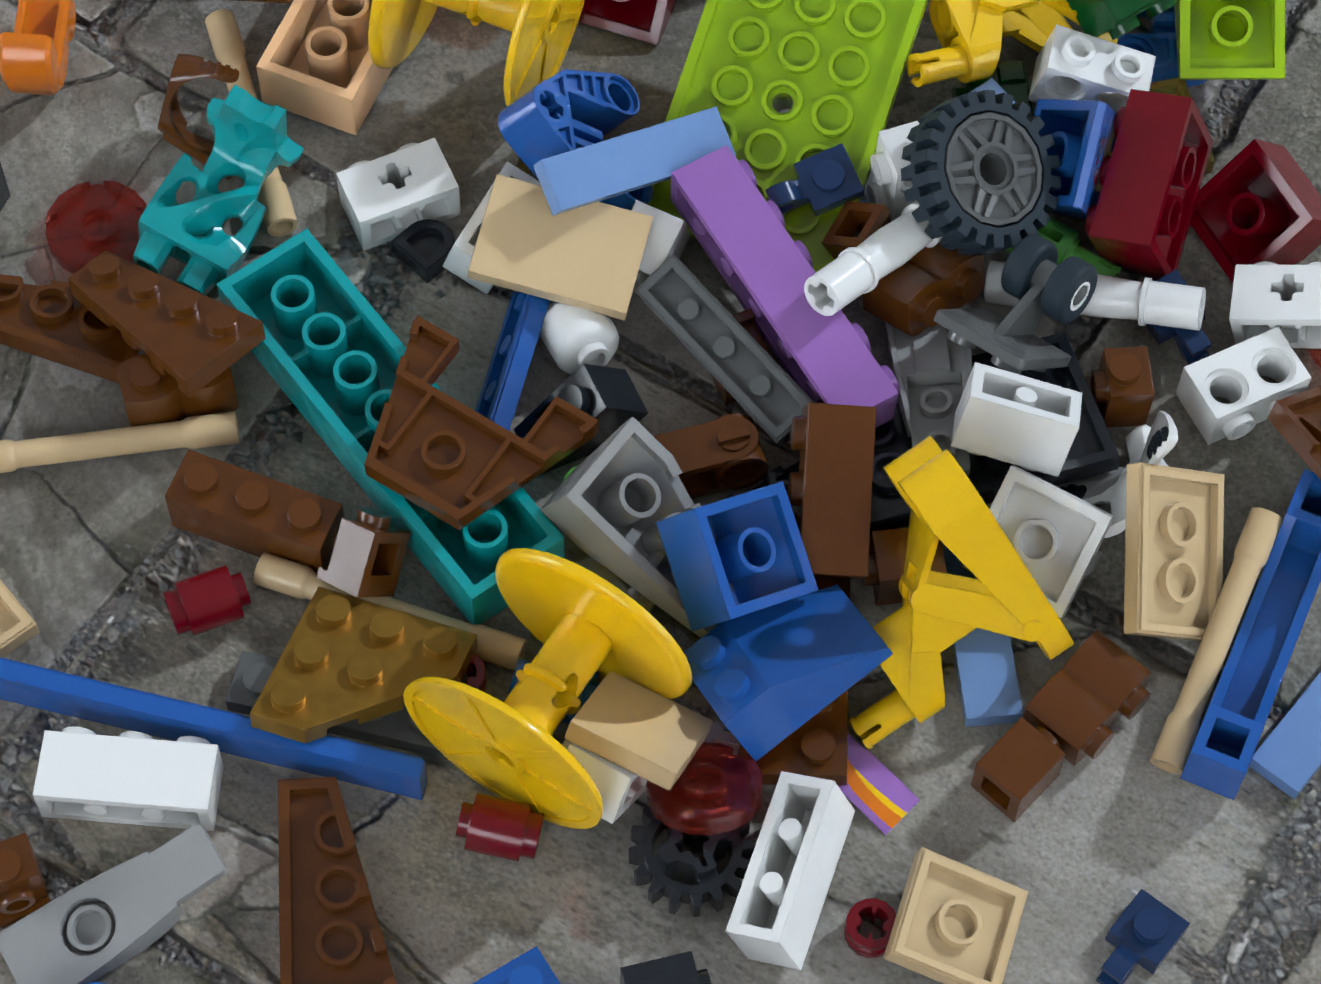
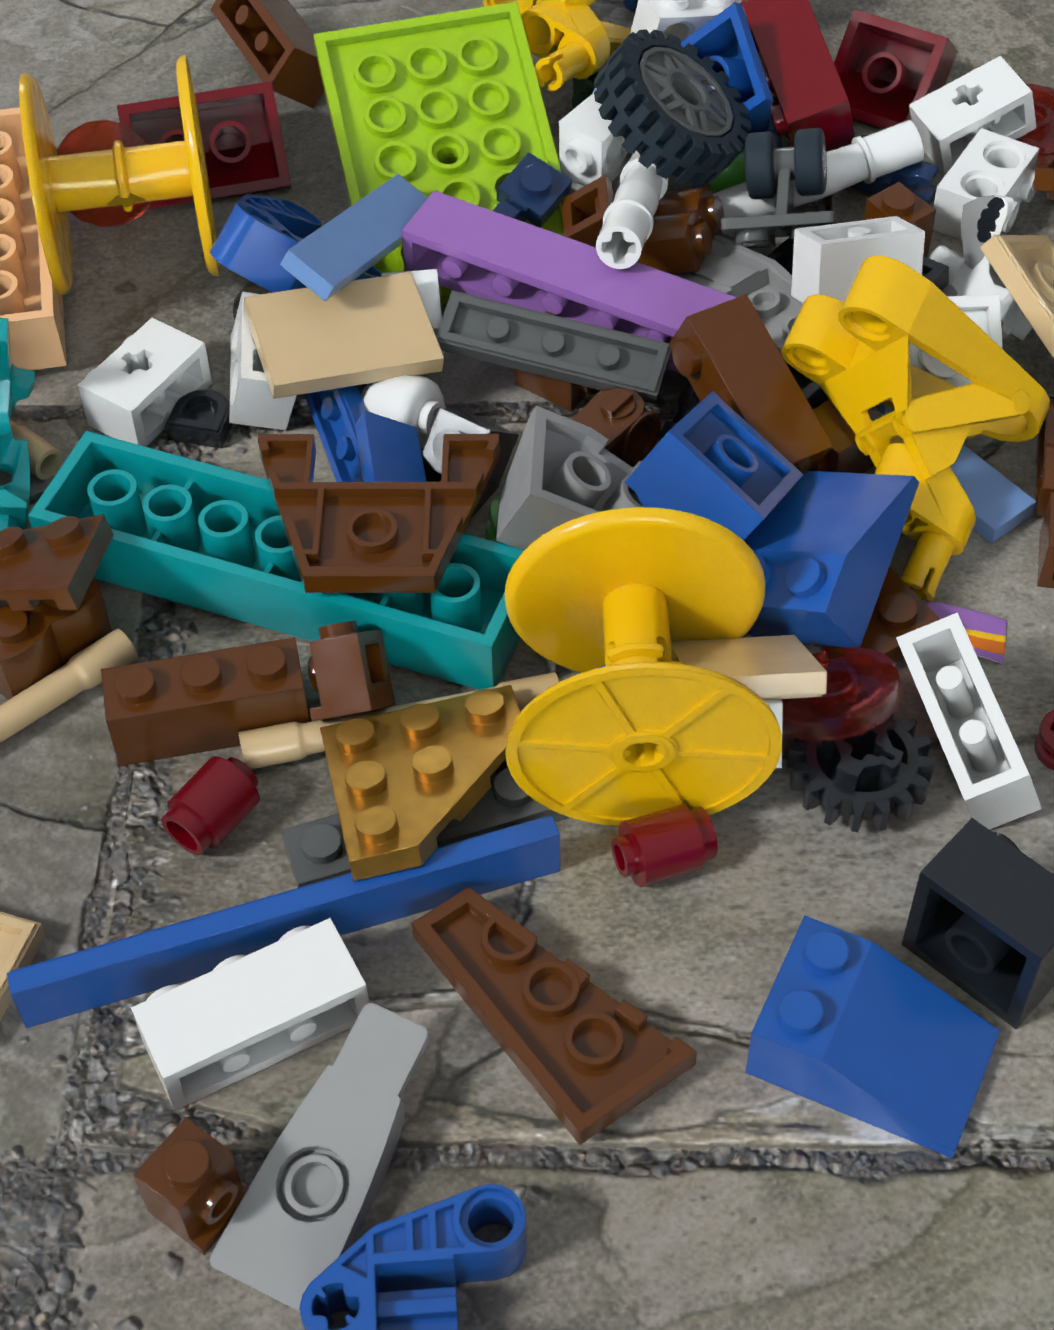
camera: 30 degrees left, 10 degrees down
(522, 385) = (388, 450): none -> blue tile

